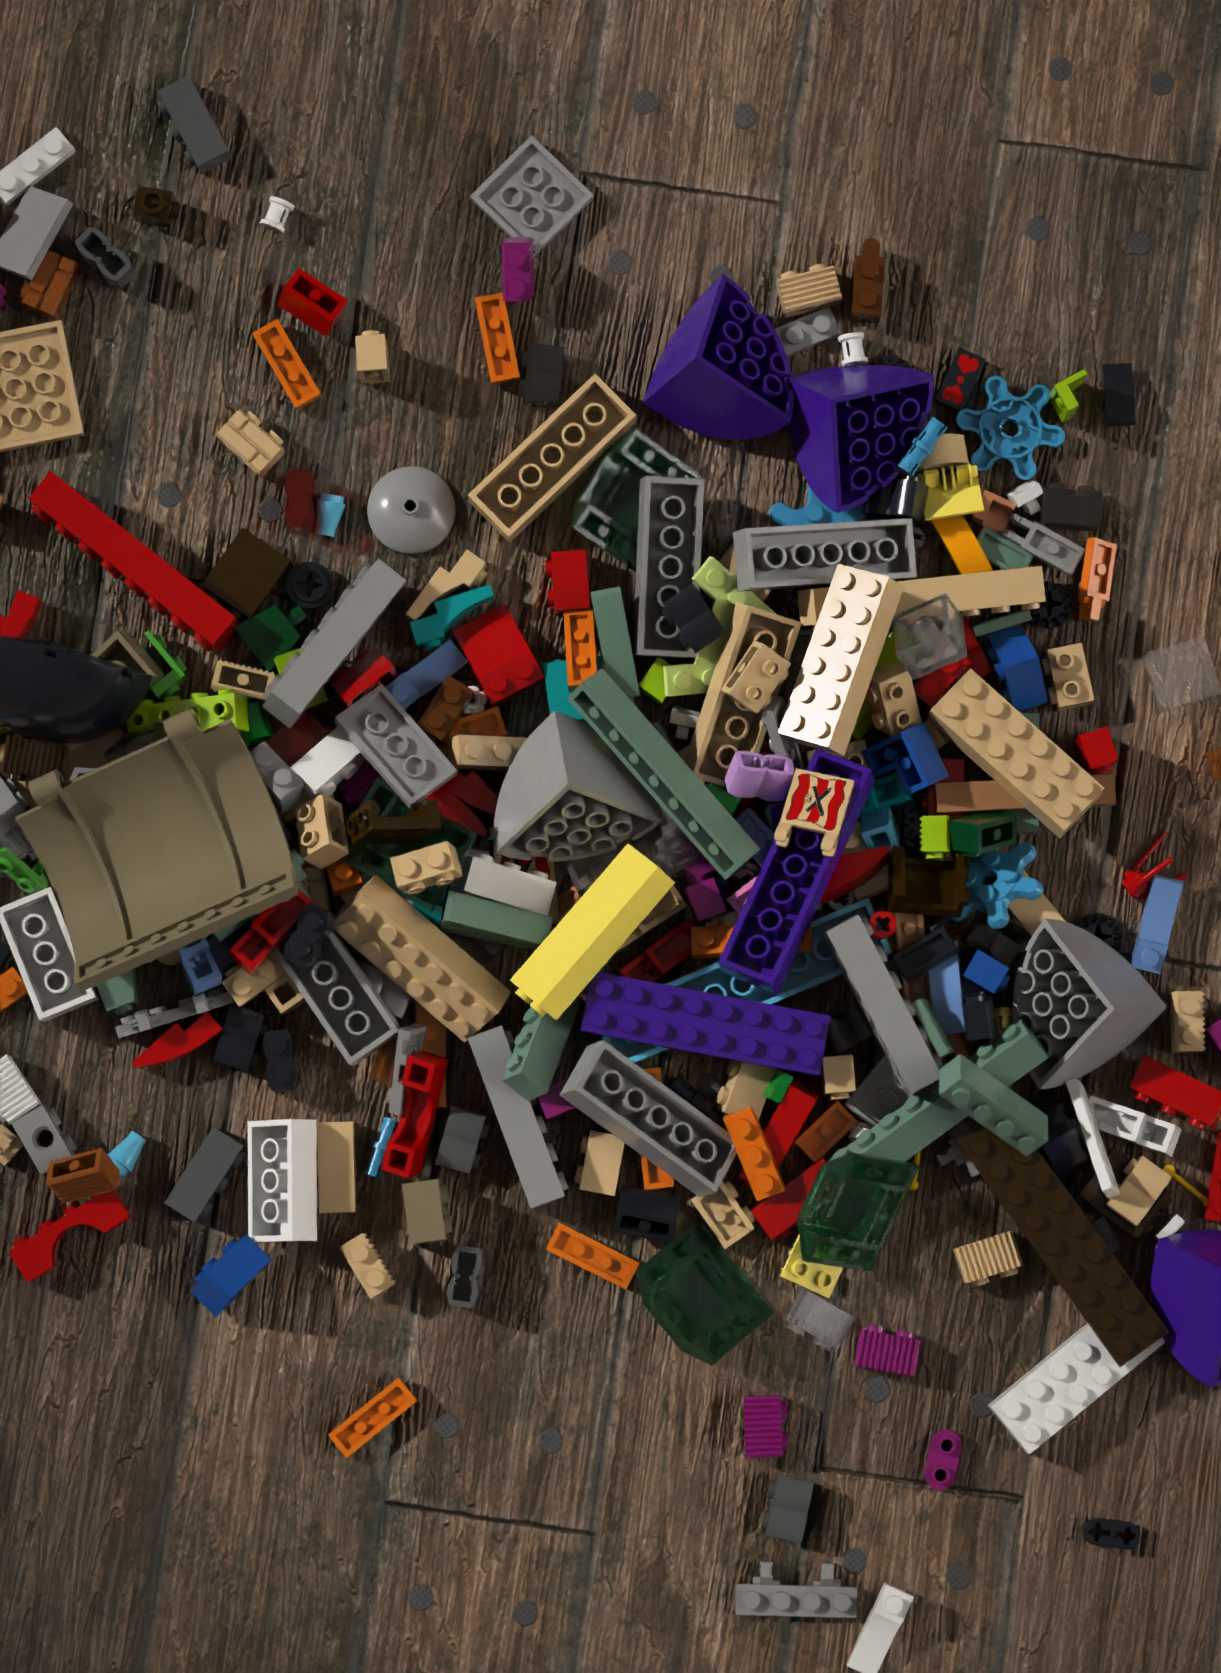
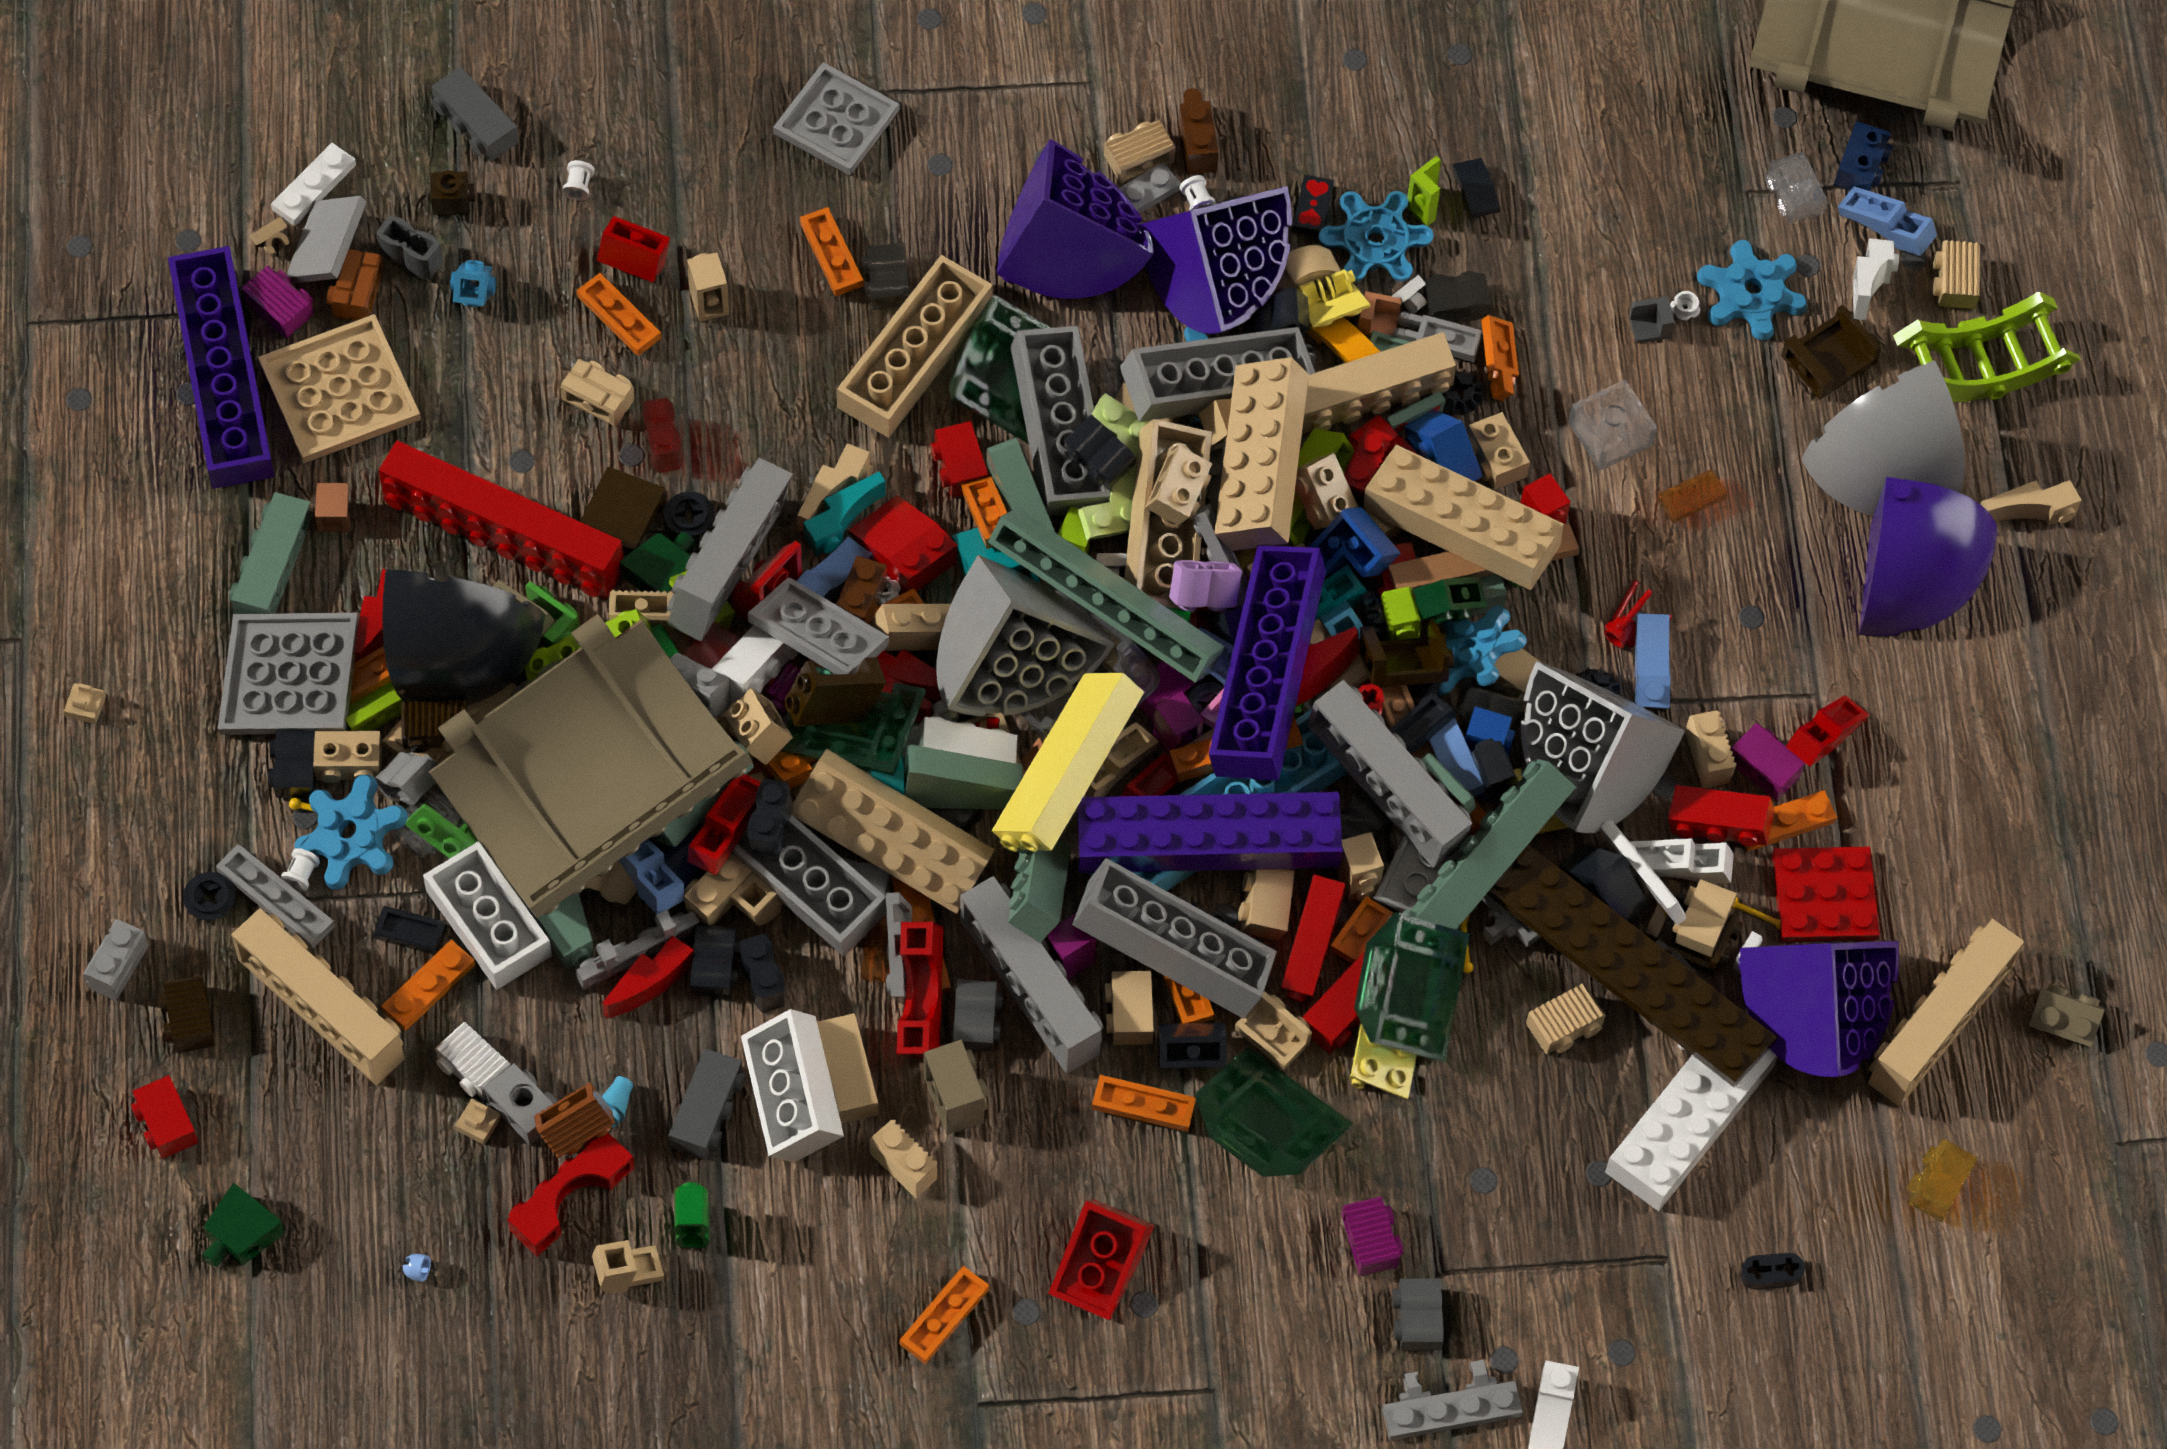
camera: 15 degrees left, 20 degrees down
(105, 1316) = (624, 1267): none -> tan brick
(156, 308) = (465, 290): none -> dark azure brick
(169, 1283) = (691, 1216): none -> green brick
(226, 1278) = (754, 1193): blue brick -> none
(329, 513) = (694, 442): medium azure cone -> none
(379, 1147) = (888, 1057): dark azure pin -> none
(417, 529) = (779, 441): light grey dish -> none
(426, 867) = (879, 725): tan brick -> none
(466, 1267) = (1012, 1146): dark grey brick -> none
(518, 269) = (839, 179): magenta brick -> none
(521, 1395) = (1100, 1258): none -> red slope
(754, 1153) = (1292, 954): orange plate -> none
(778, 1086) = (1300, 883): green tile -> none
(815, 804) = (1272, 590): flag -> none
(819, 1319) = (1402, 1116): clear brick -> none
(887, 1351) = (1484, 1133): magenta brick -> none
(922, 446) = (1292, 256): dark azure pin -> none
(929, 636) = (1347, 417): clear brick -> none
(942, 1459) = (1572, 1232): magenta plate -> none
(993, 1105) = (1532, 841): sand green brick -> none

